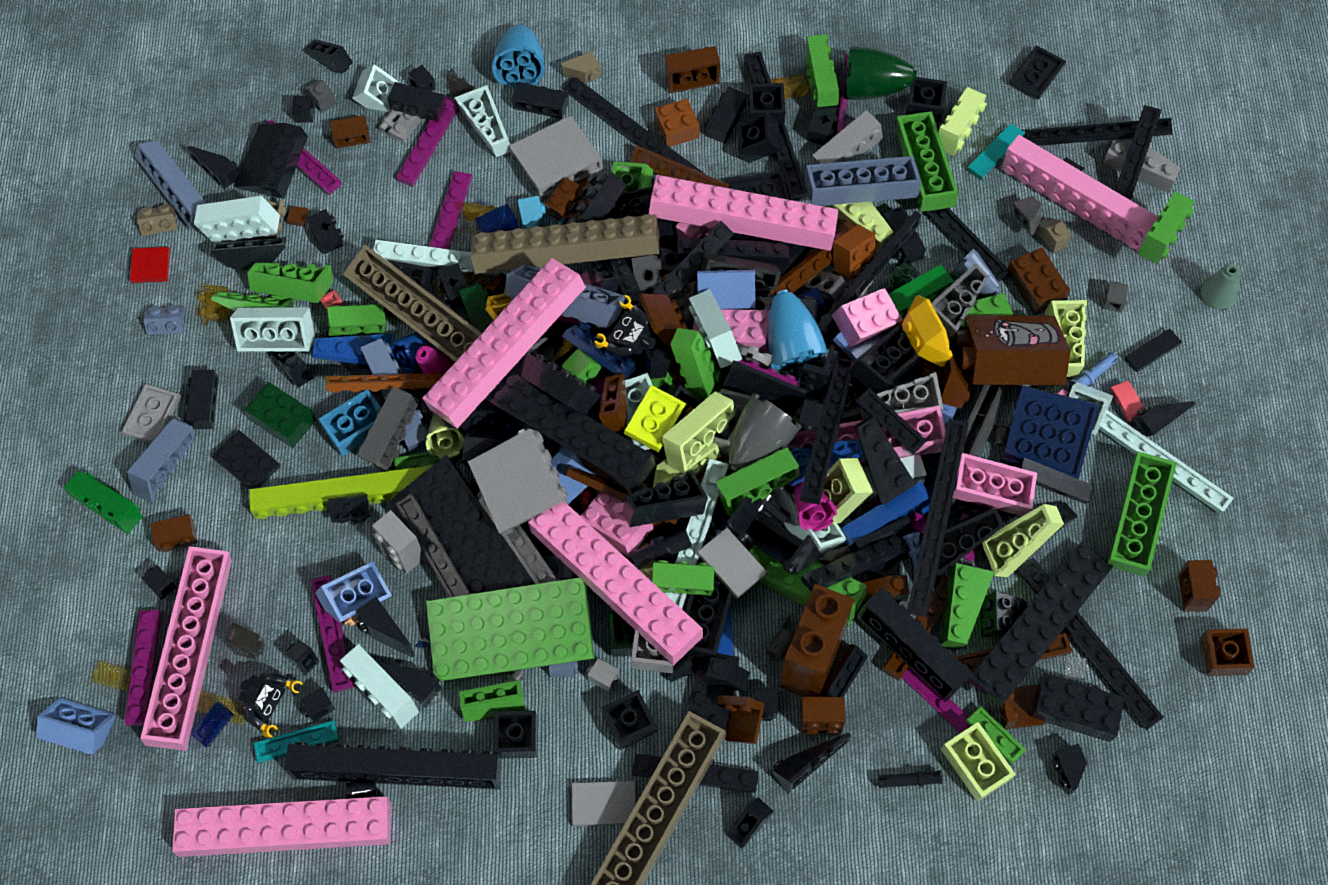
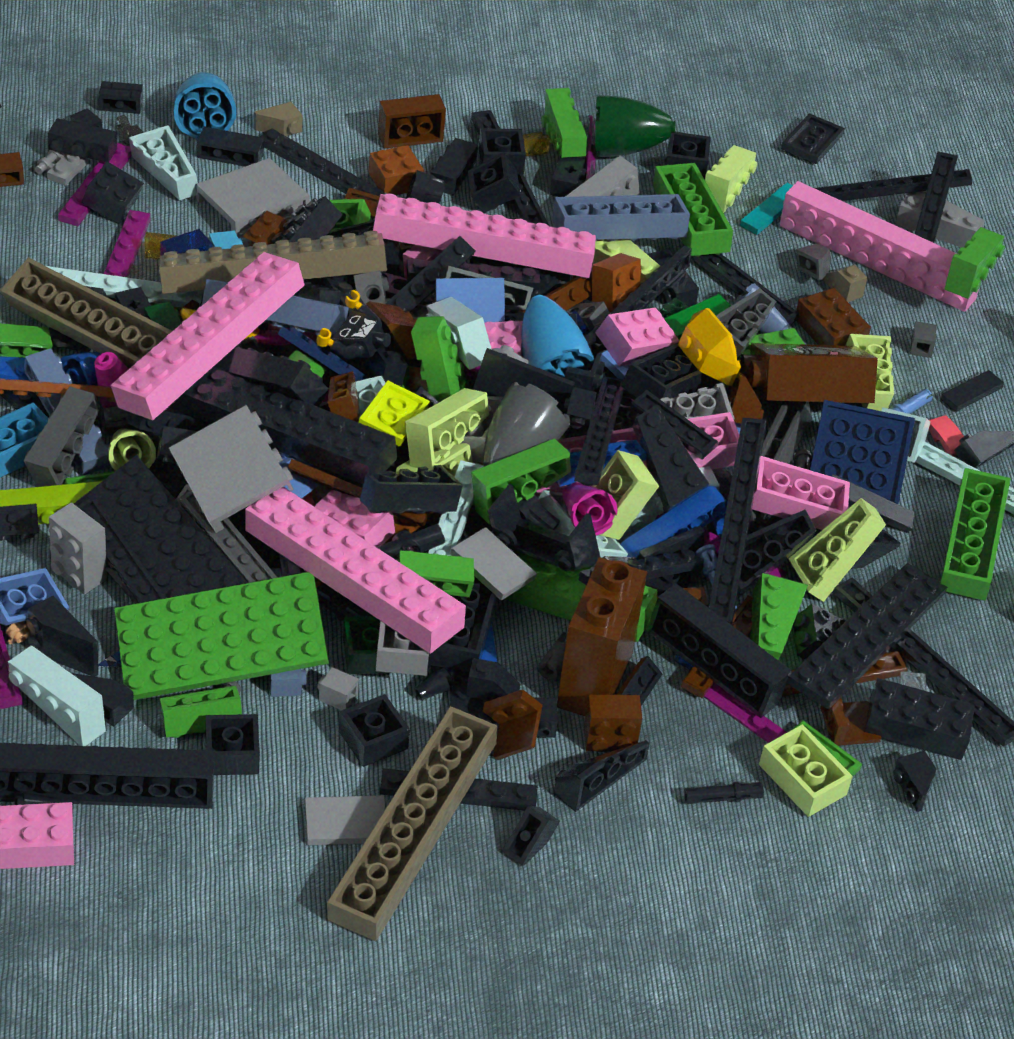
camera: 10 degrees left, 20 degrees down
(374, 89) = (28, 131): light aqua slope -> none
(440, 156) = (112, 192): none -> black brick
(451, 47) = (120, 97): none -> black brick
(699, 146) = (425, 187): none -> black piece

